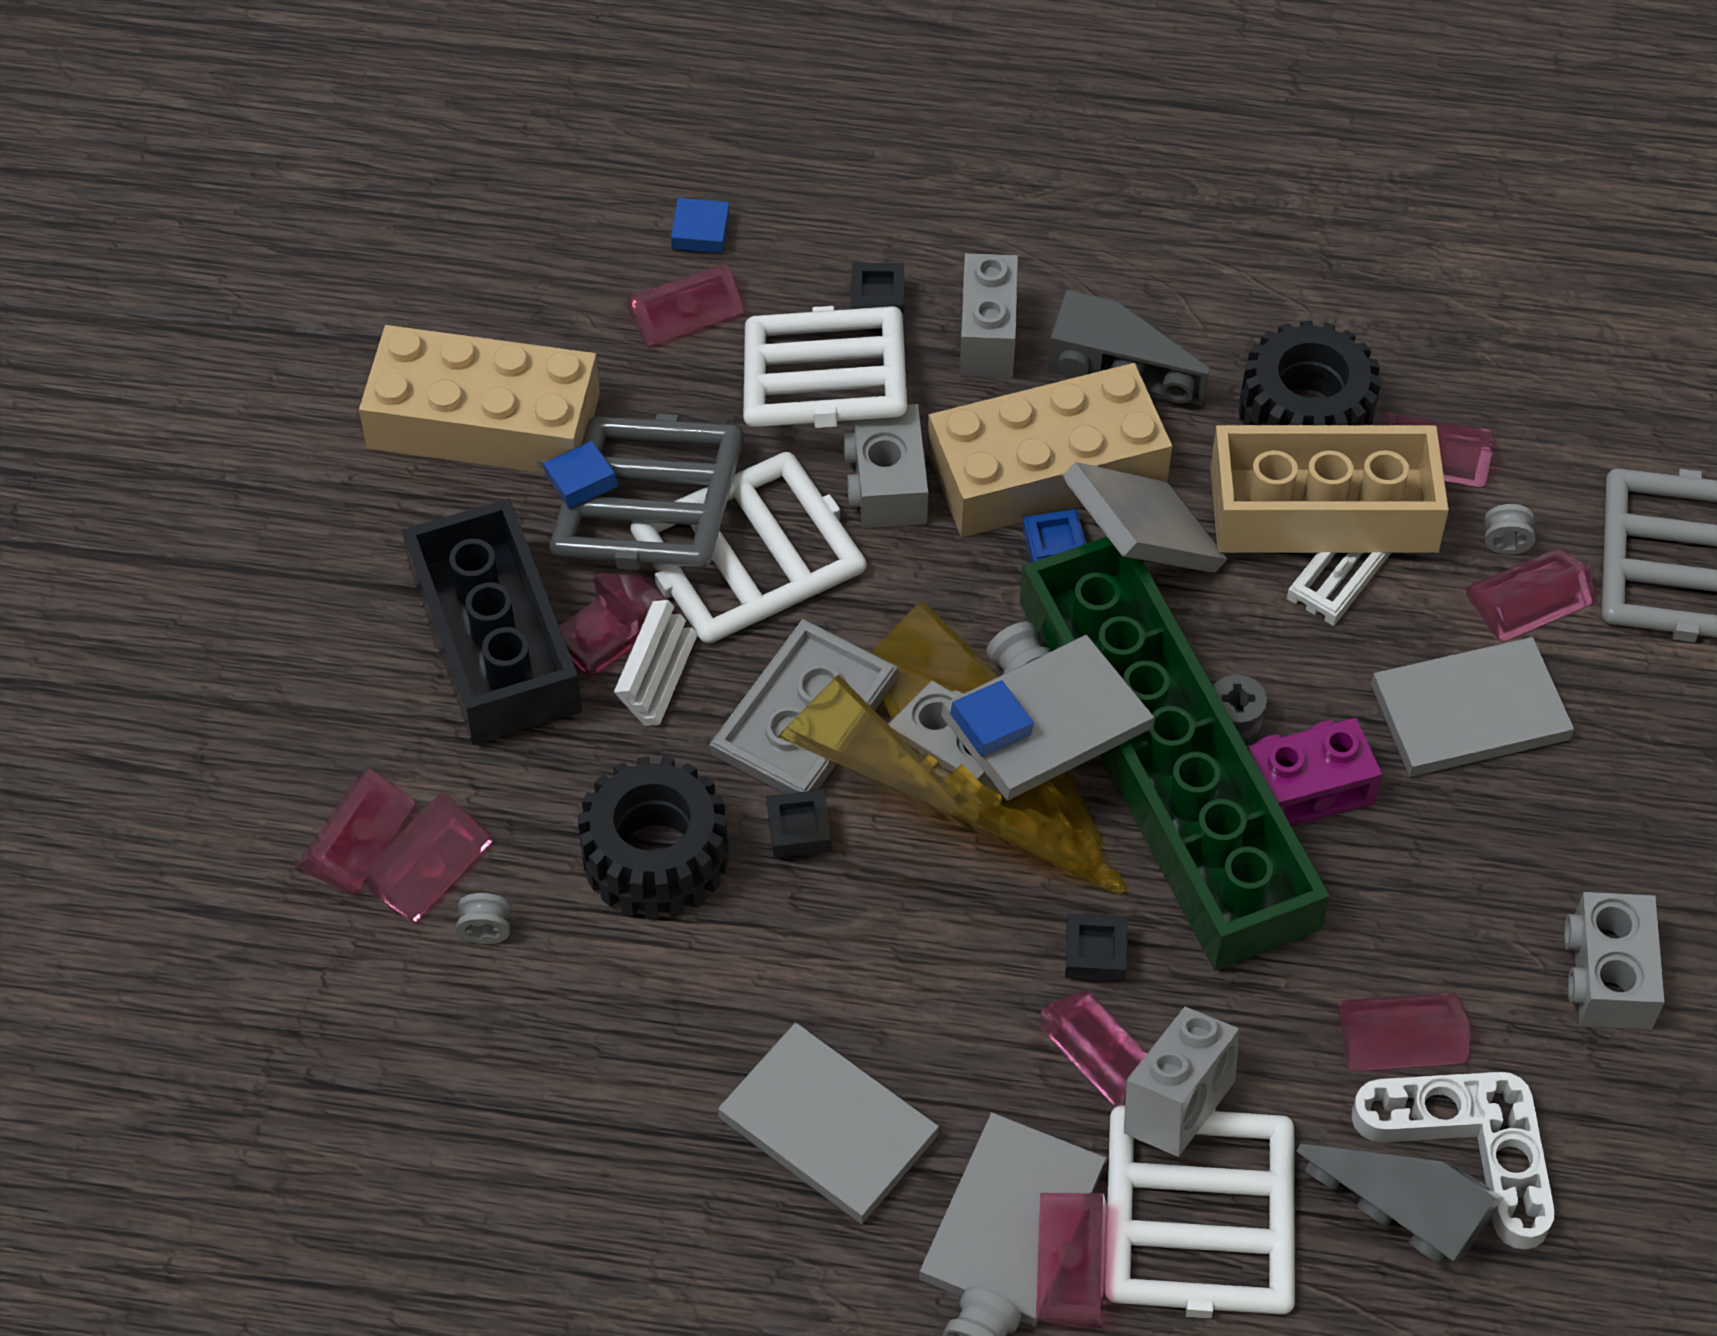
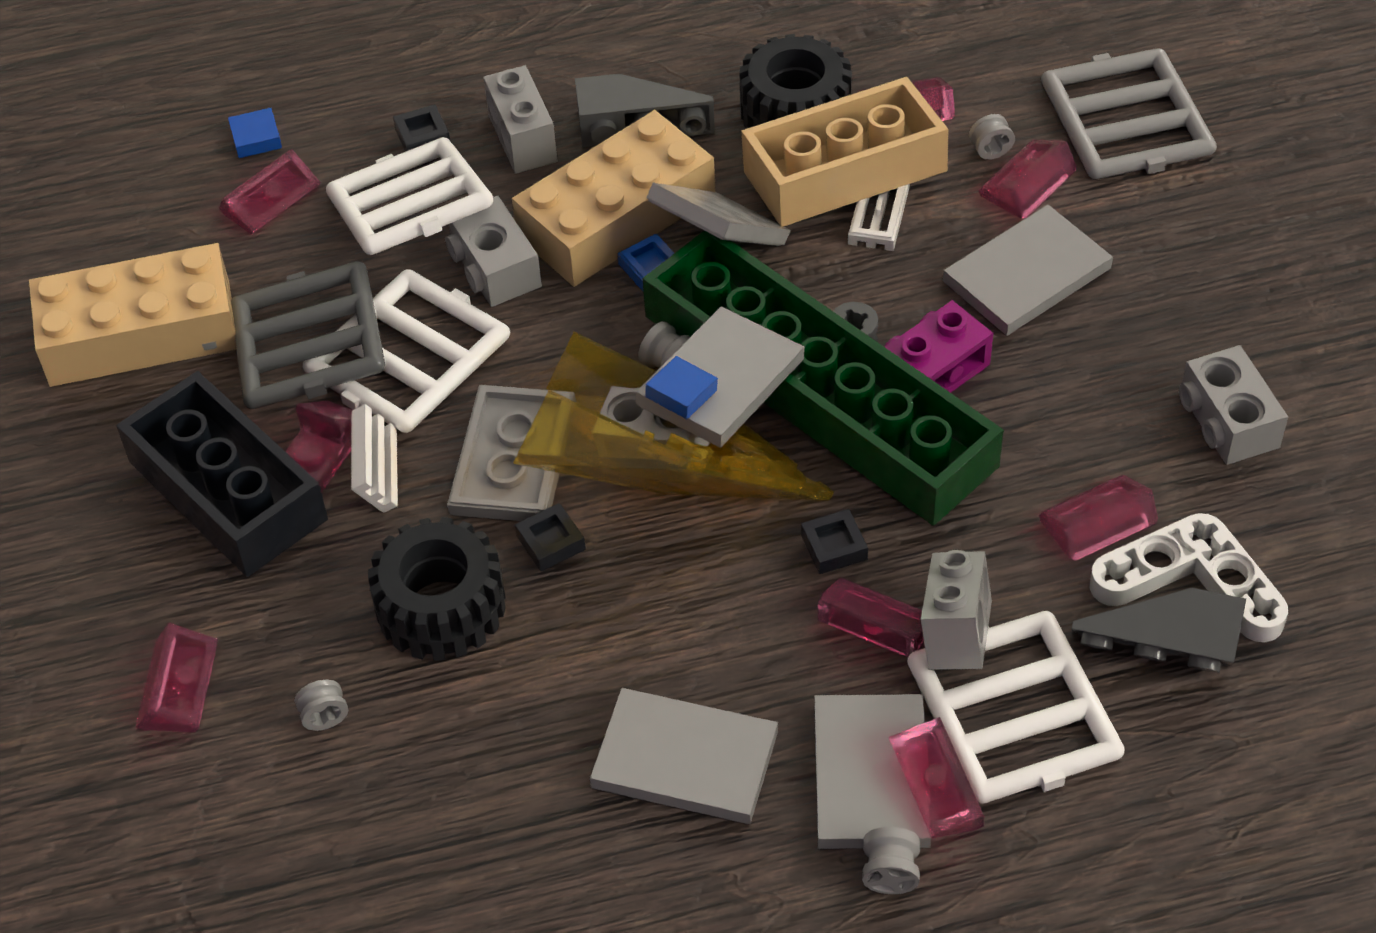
camera: 20 degrees left, 5 degrees down
(426, 858) = (248, 677): clear pink slope -> none
(580, 474) = (245, 338): blue tile -> none

